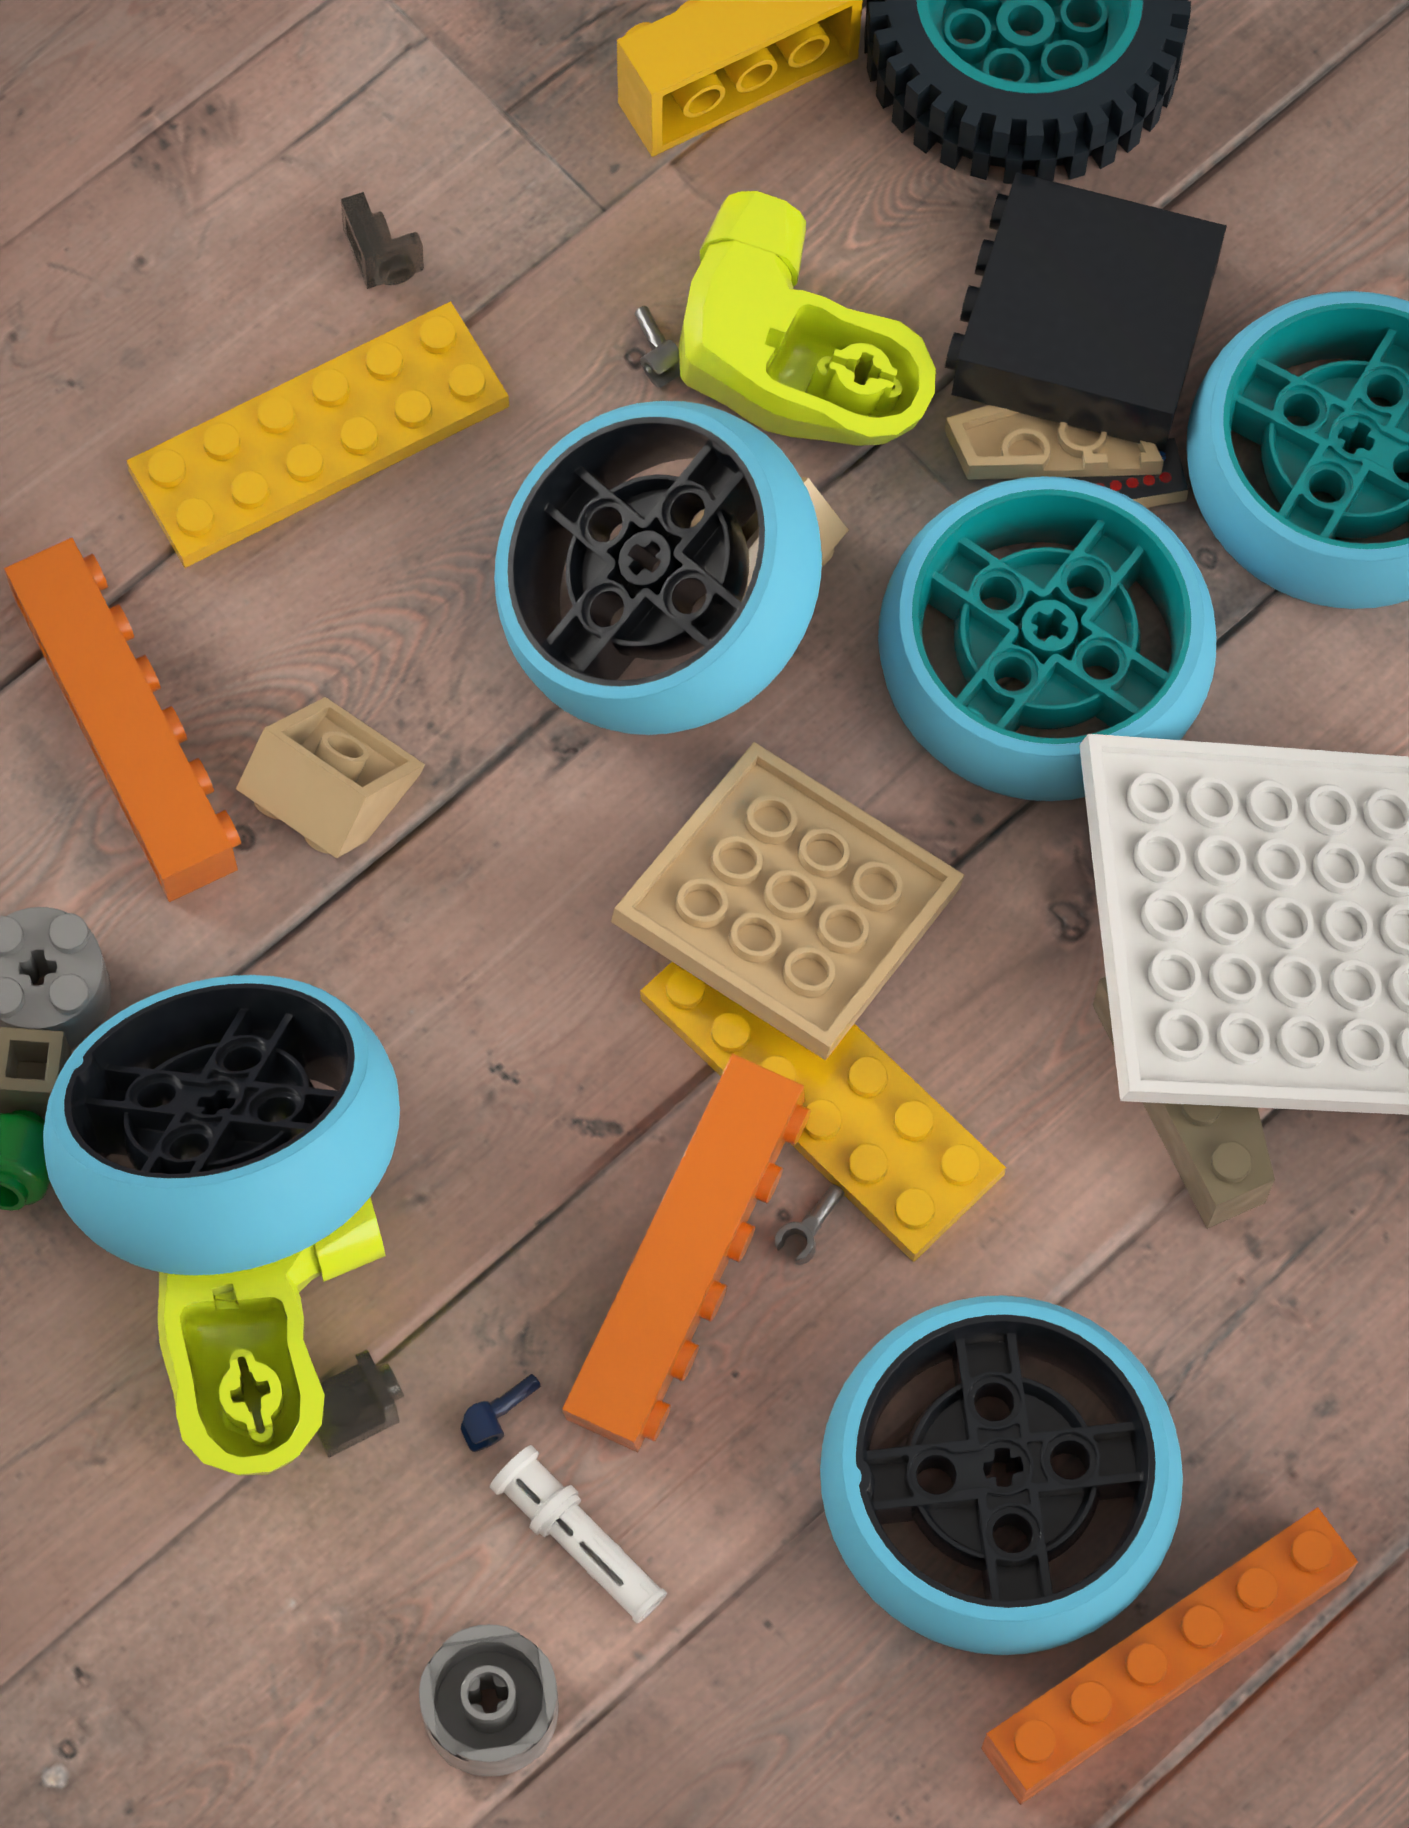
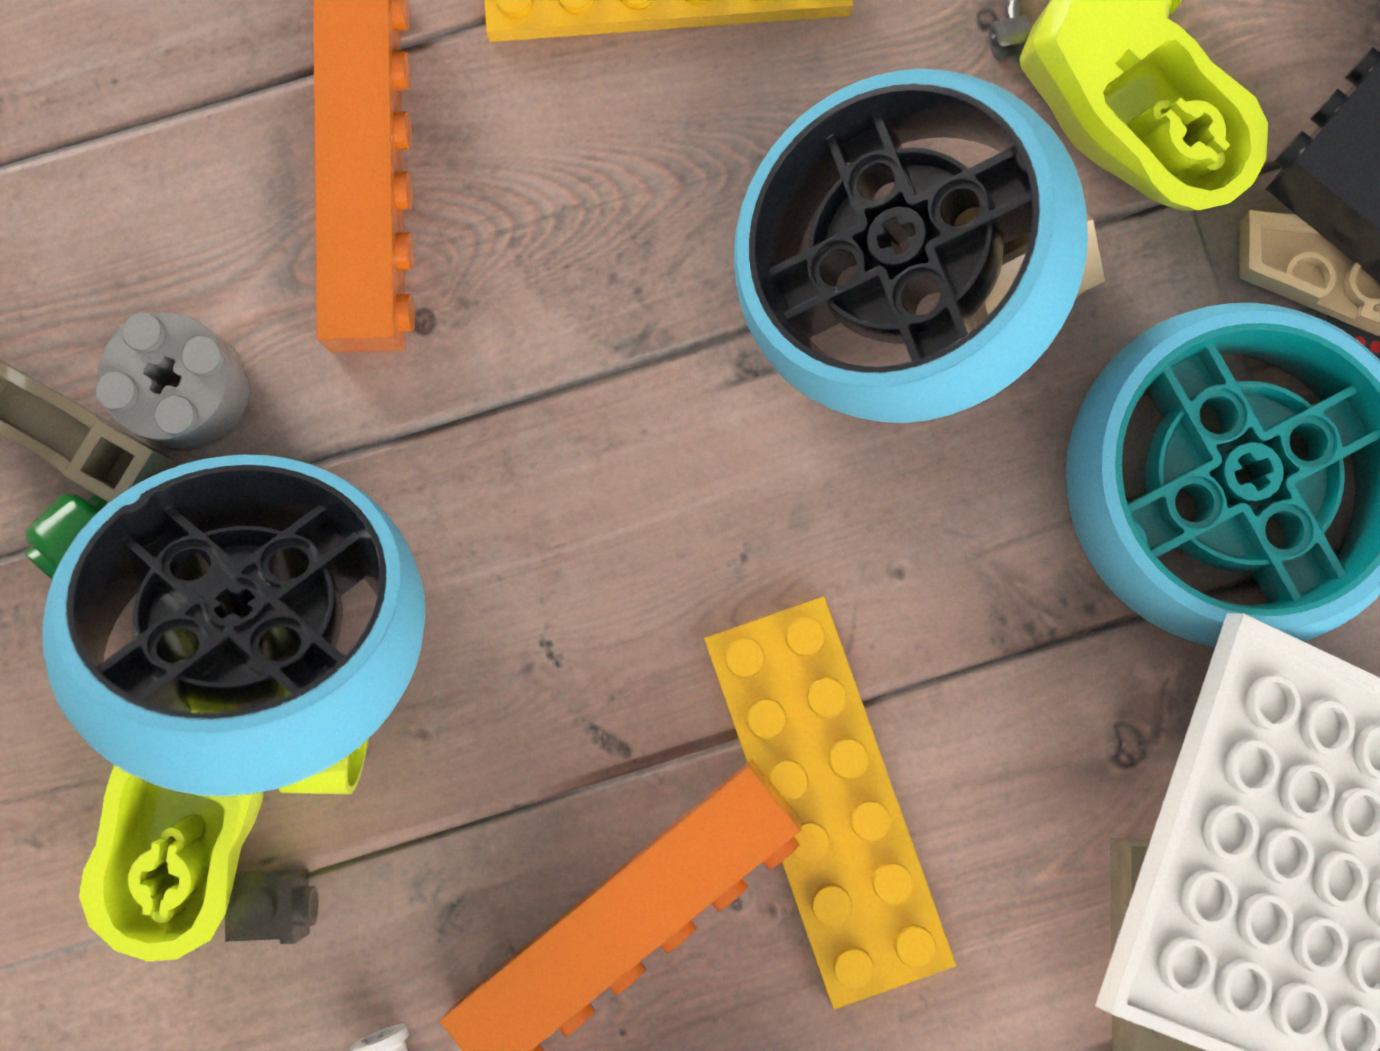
camera: 30 degrees right, 15 degrees up
(327, 776) = (518, 301): tan slope -> none
(480, 1420) = (374, 975): dark blue hand -> none
(788, 900) = (876, 623): tan plate -> none
(810, 1224) = (753, 930): flat silver hand -> none

